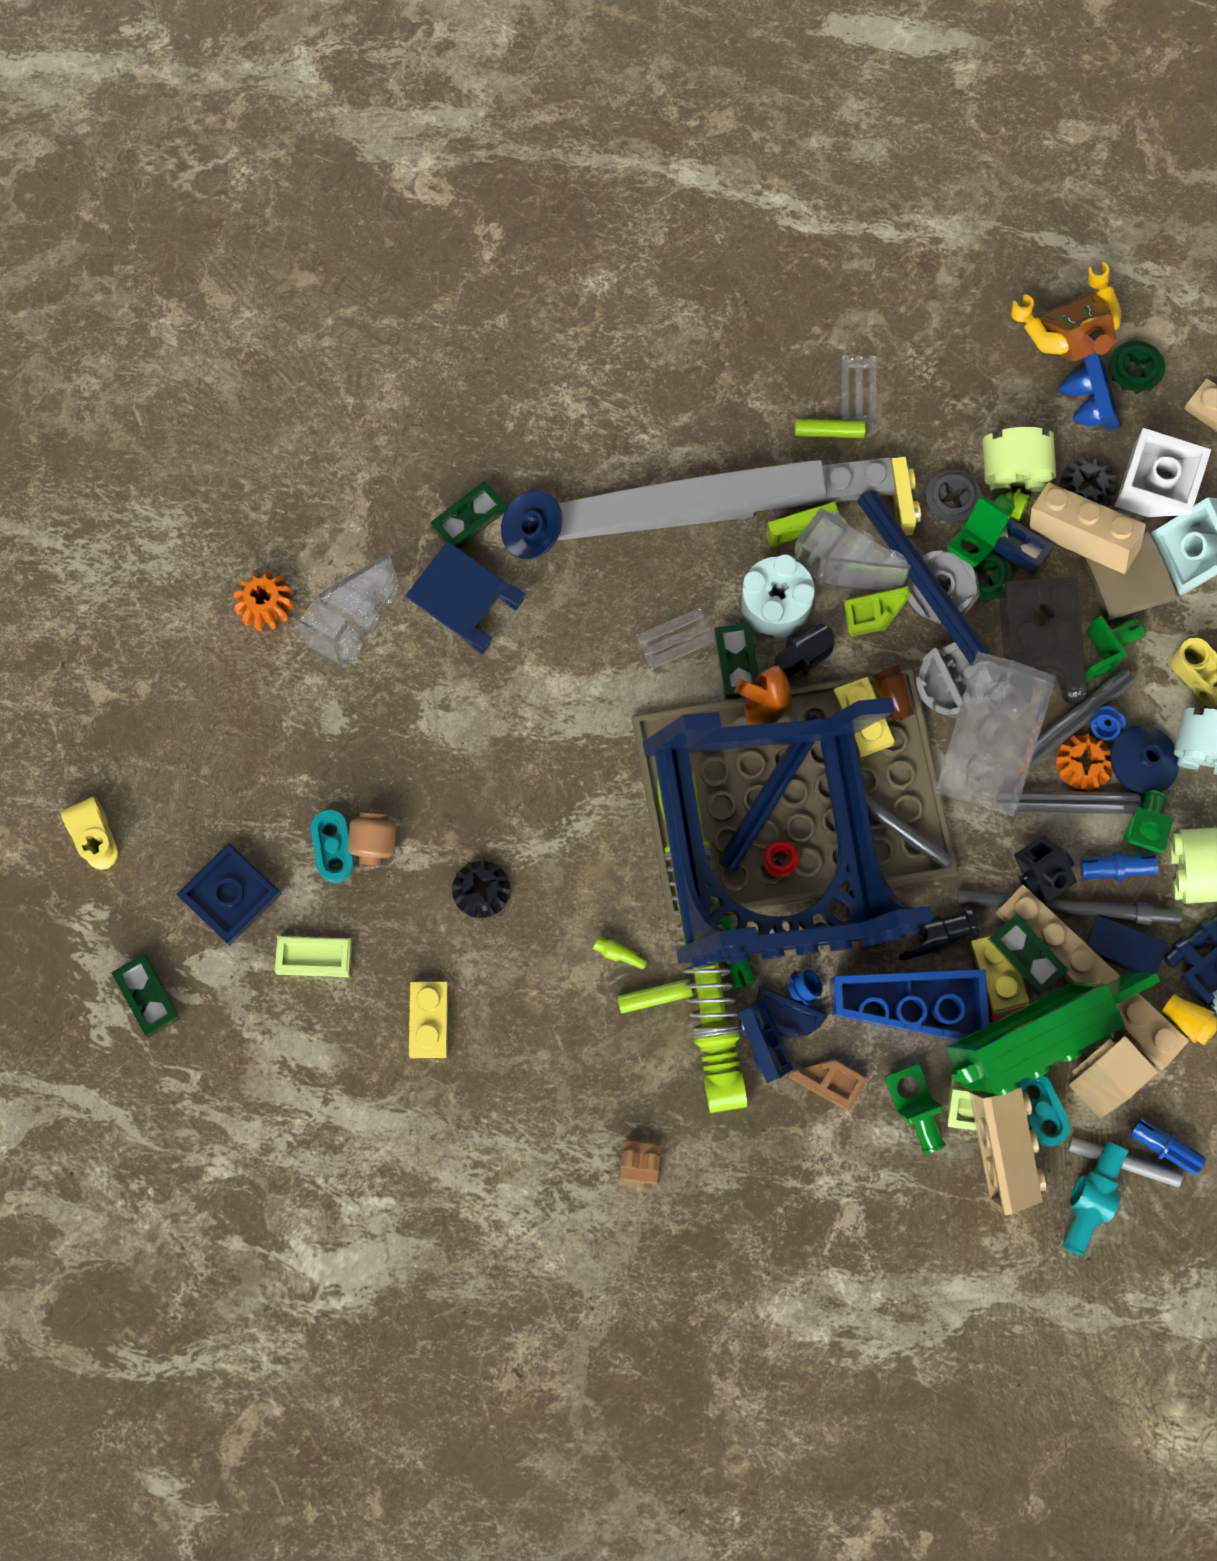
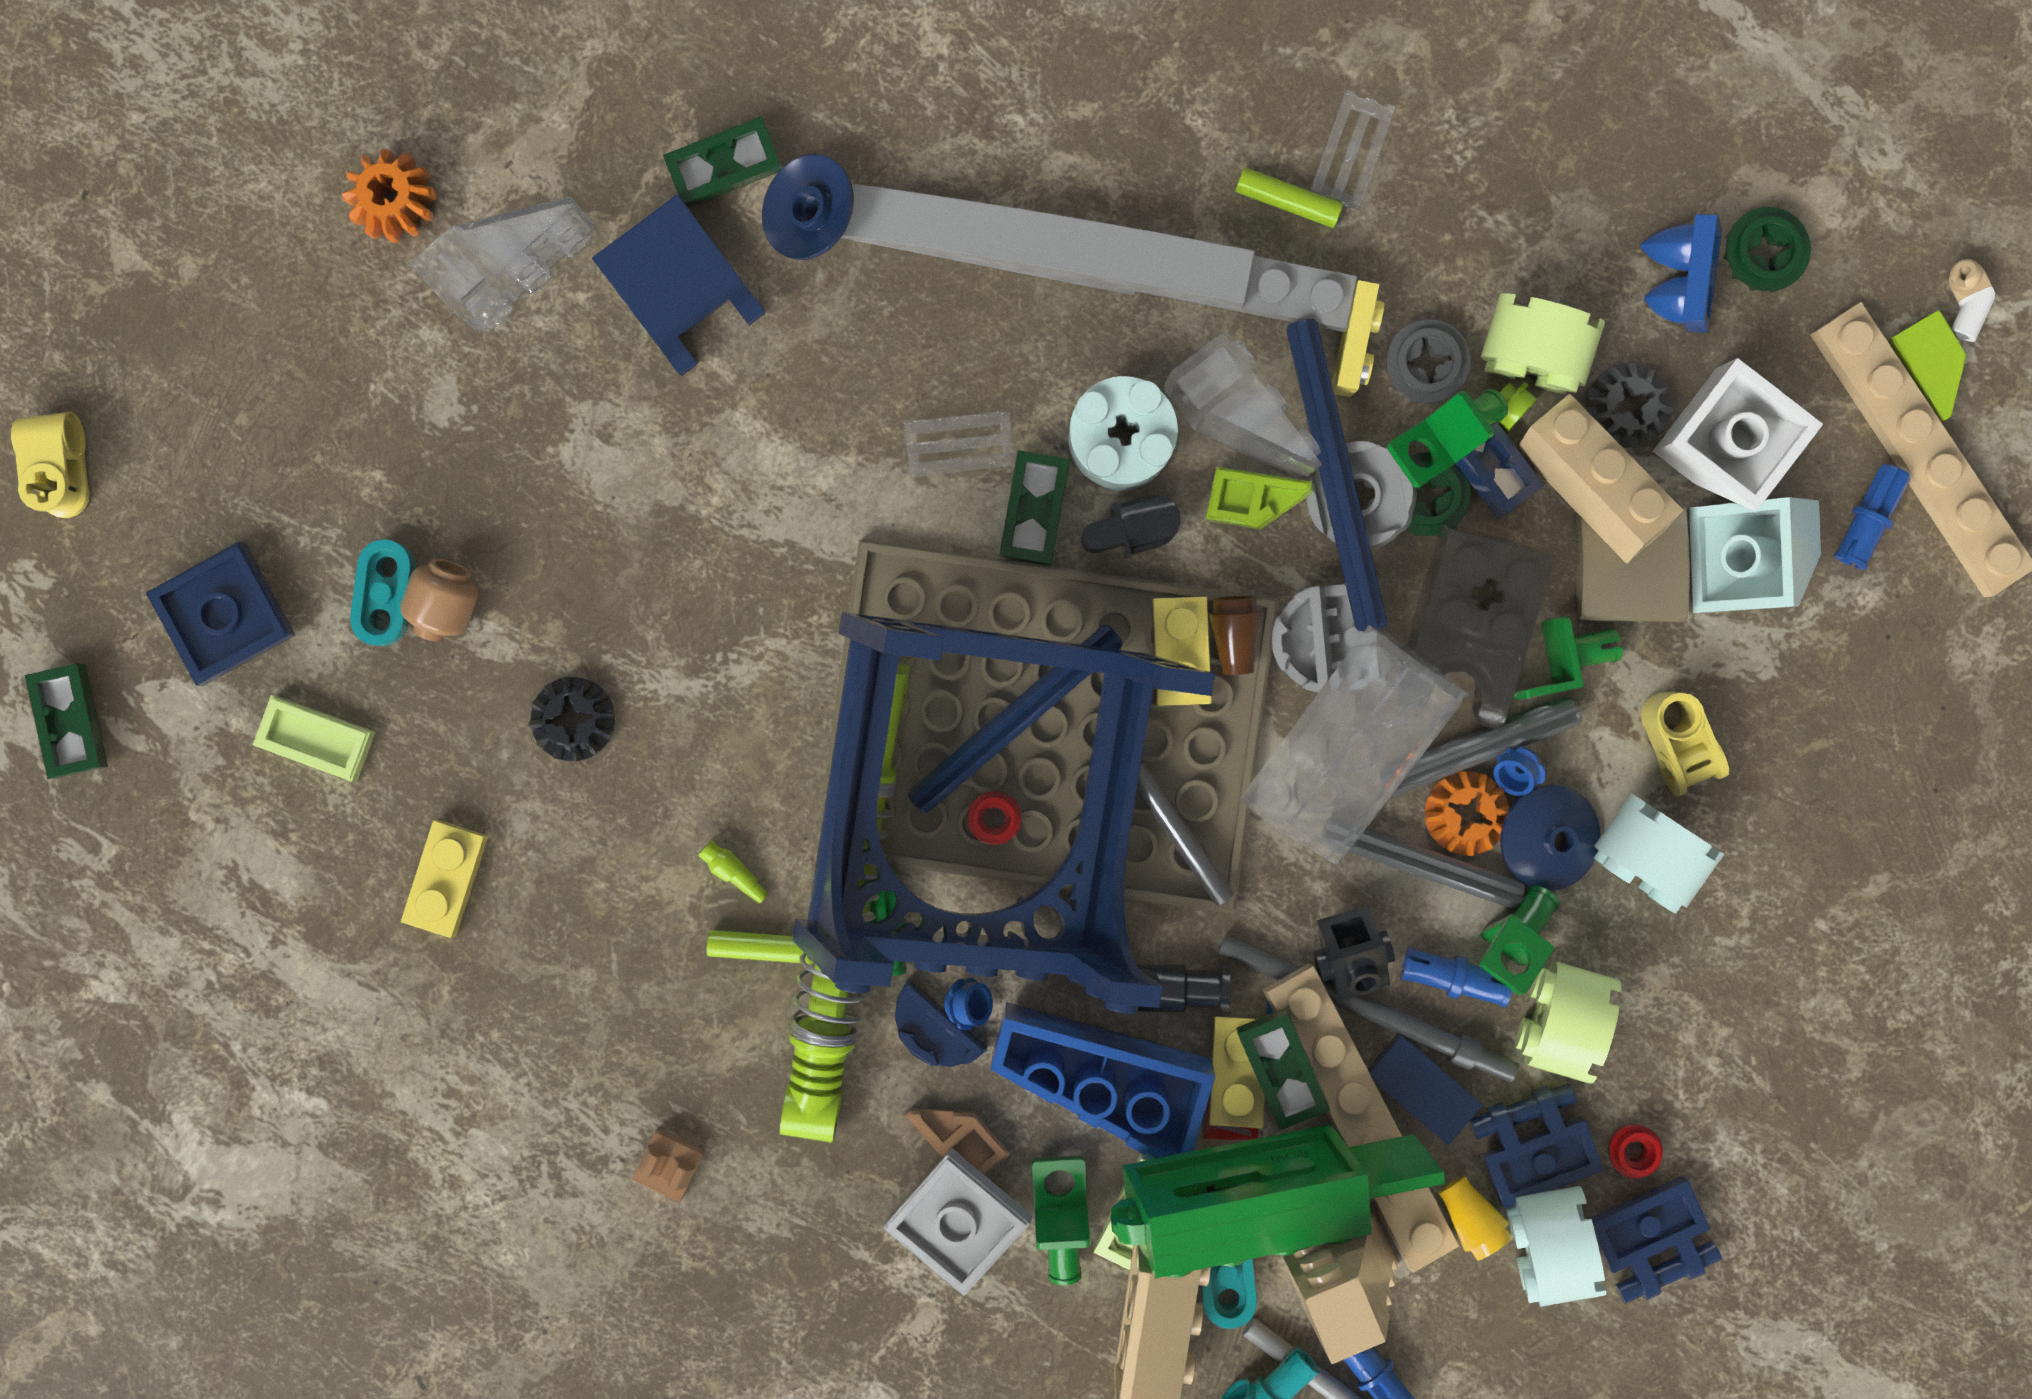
camera: 10 degrees right, 15 degrees up
(763, 1035) = (886, 1064): dark blue piece -> none
(768, 697) = (1054, 585): orange piece -> none
(791, 527) = (1192, 333): lime tile -> none
(849, 1134) = (957, 1221): none -> light grey plate
(1077, 326) = (1705, 162): torso -> none

